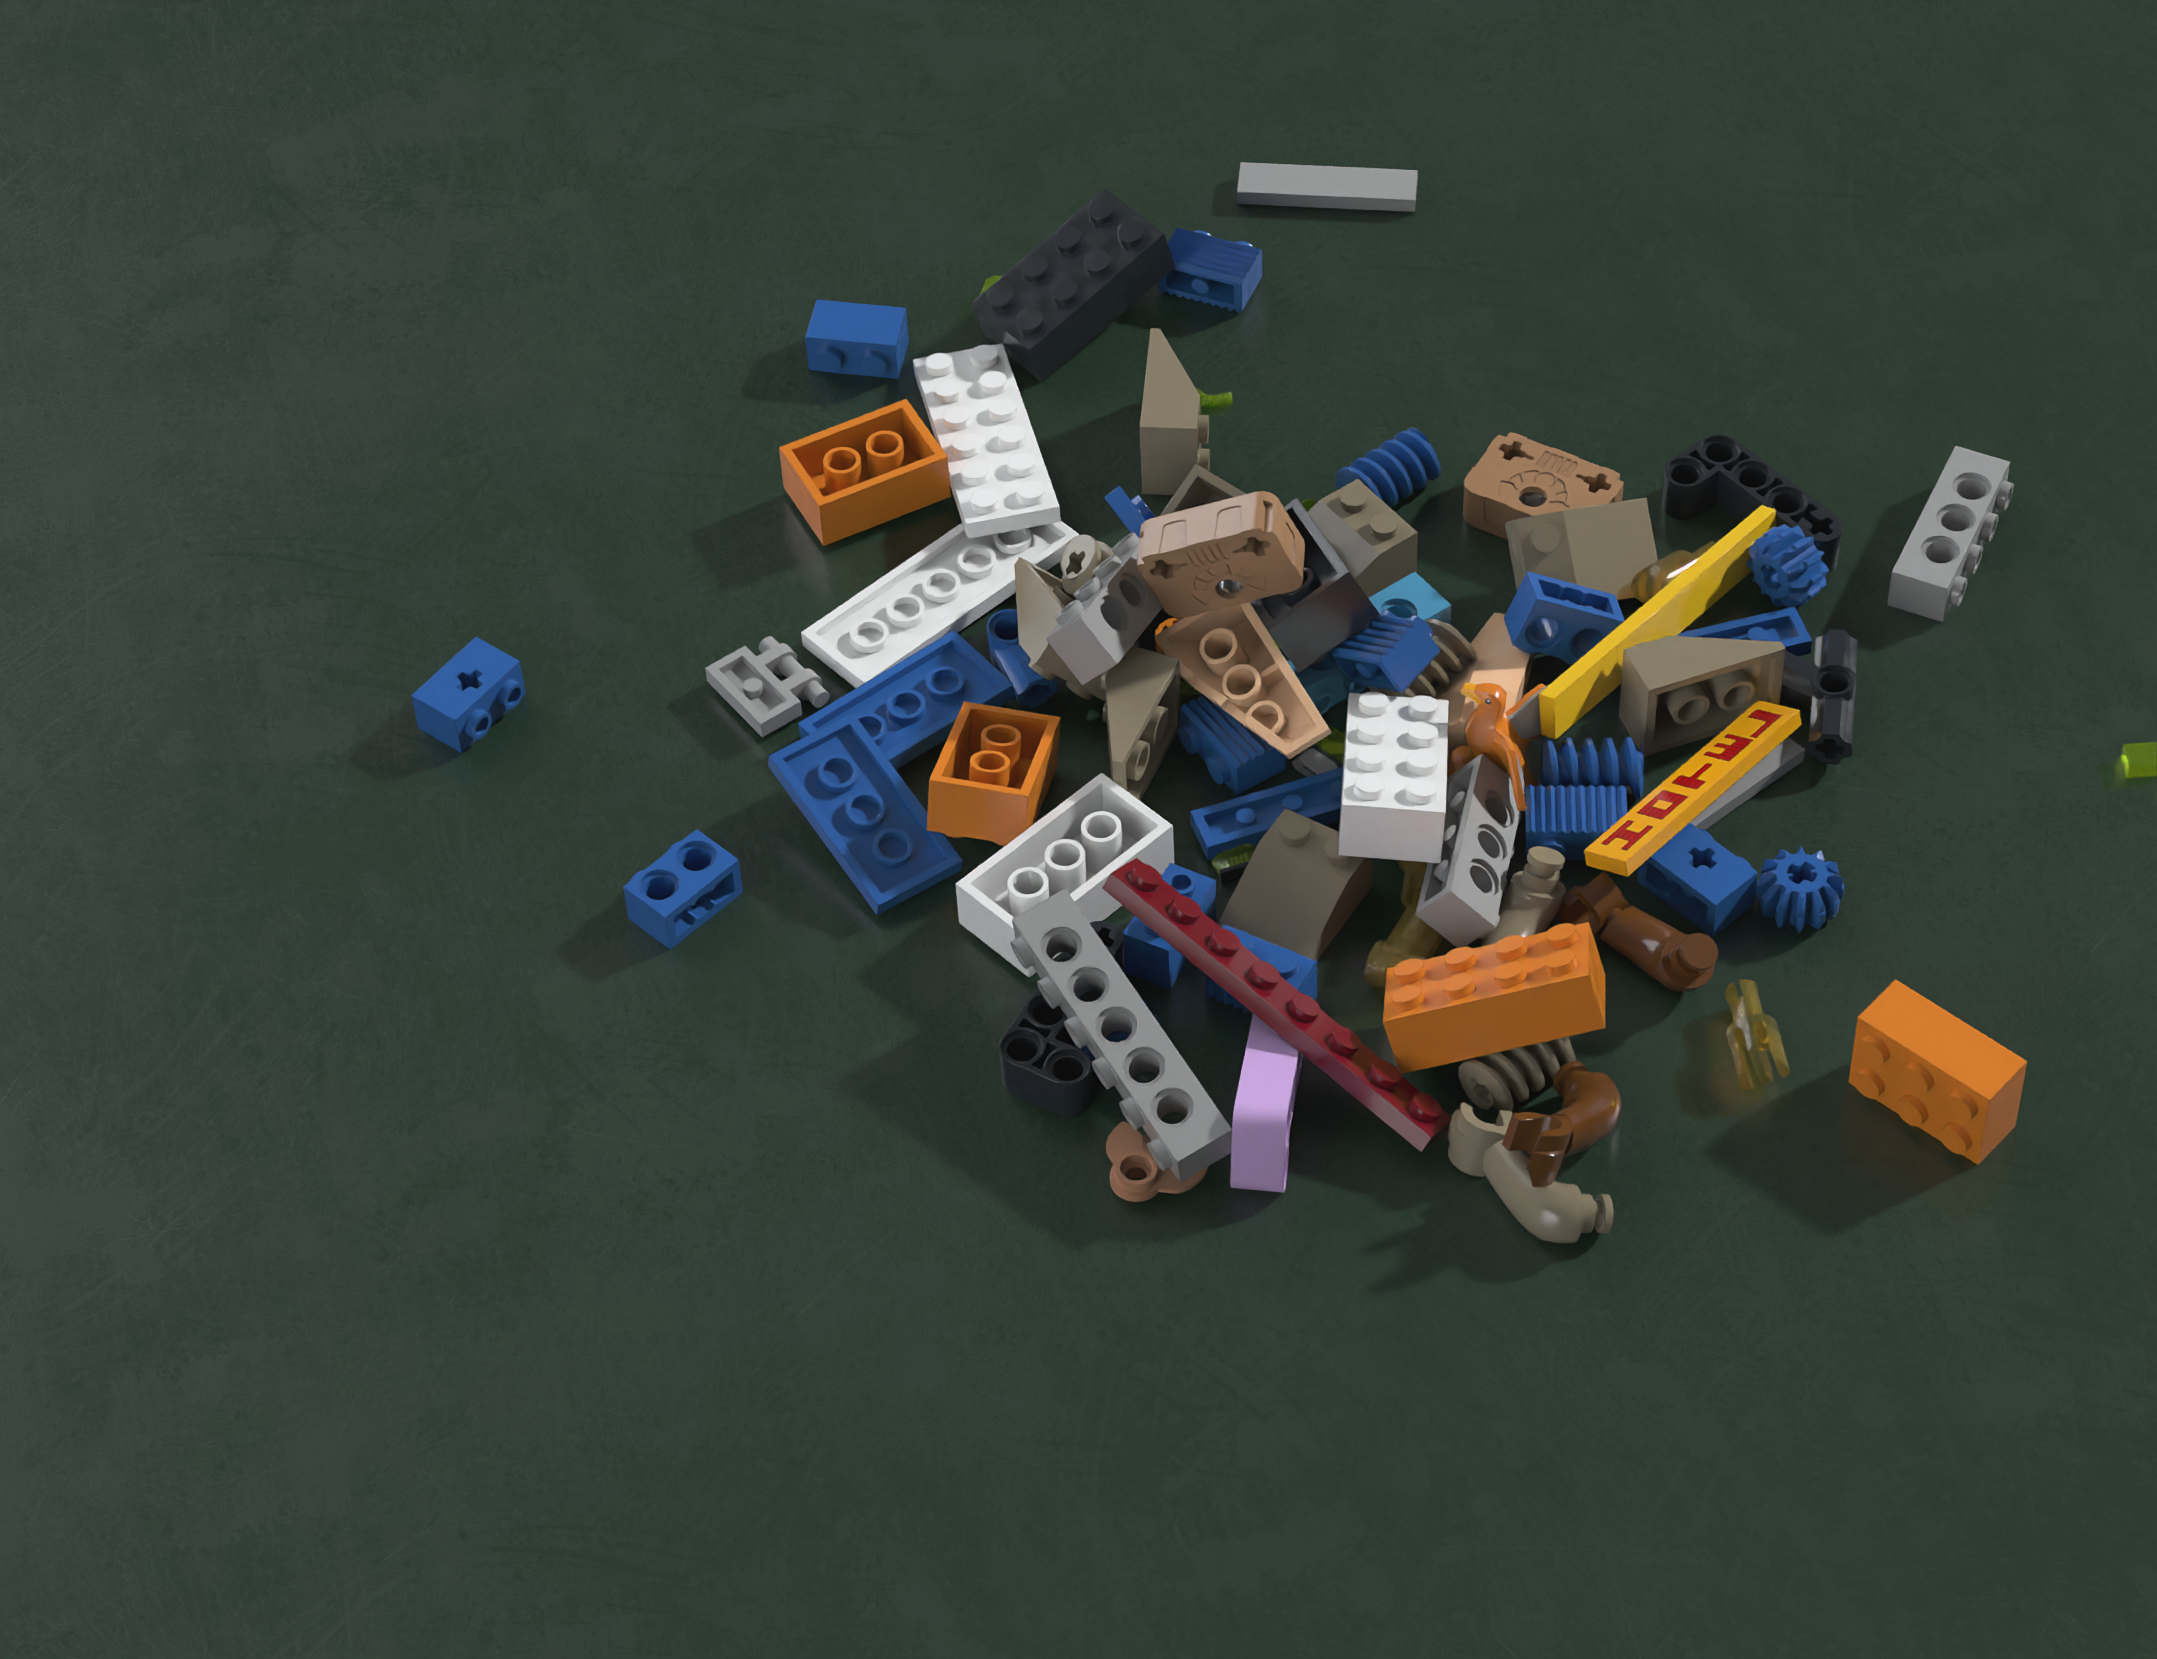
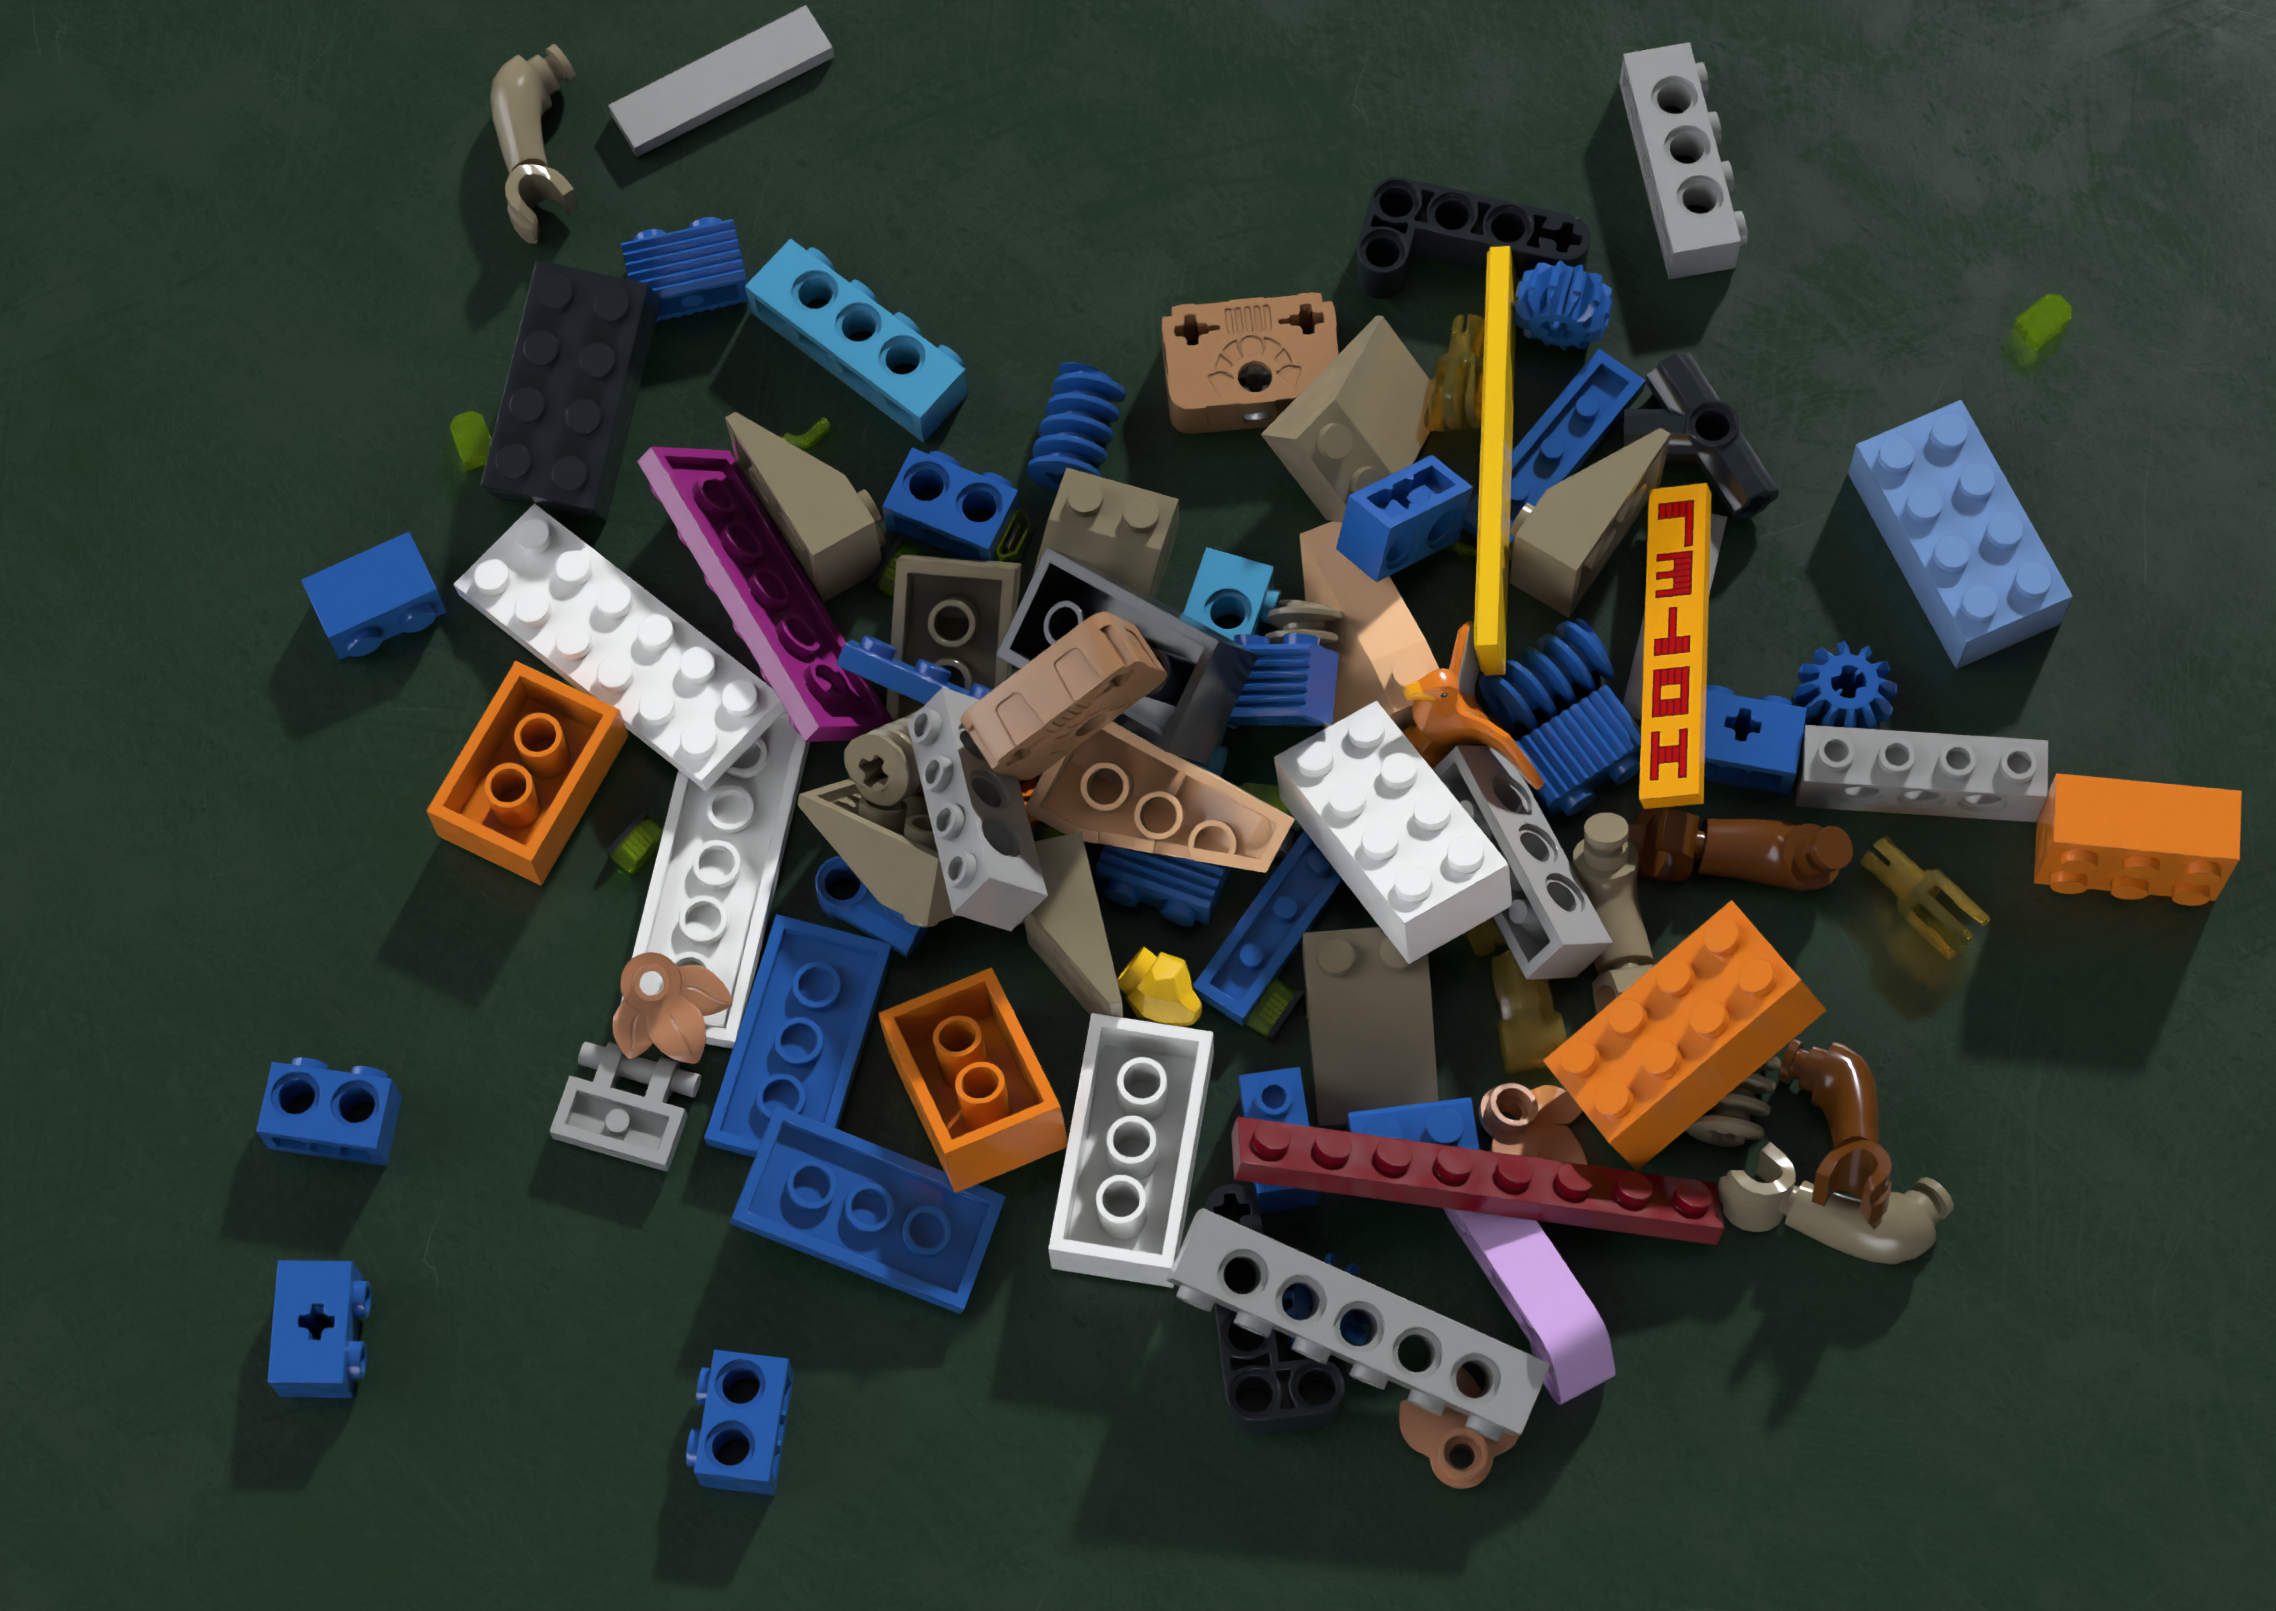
camera: 35 degrees left, 20 degrees up
(582, 588) = (324, 1126): none -> blue brick
(838, 640) = (671, 1016): none -> nougat plate
(896, 553) = (636, 843): none -> clear neon green piece
(1097, 441) = (763, 592): none -> magenta plate
(1168, 797) = (1160, 989): none -> yellow rock
(1179, 133) = (517, 106): none -> dark tan piece
(1266, 463) = (944, 520): none -> blue brick
(1290, 358) = (913, 400): none -> dark azure brick
(1349, 1005) = (1539, 1125): none -> nougat plate
(1802, 953) = (1922, 773): none -> light grey brick
(1965, 840) = (1959, 534): none -> medium blue brick

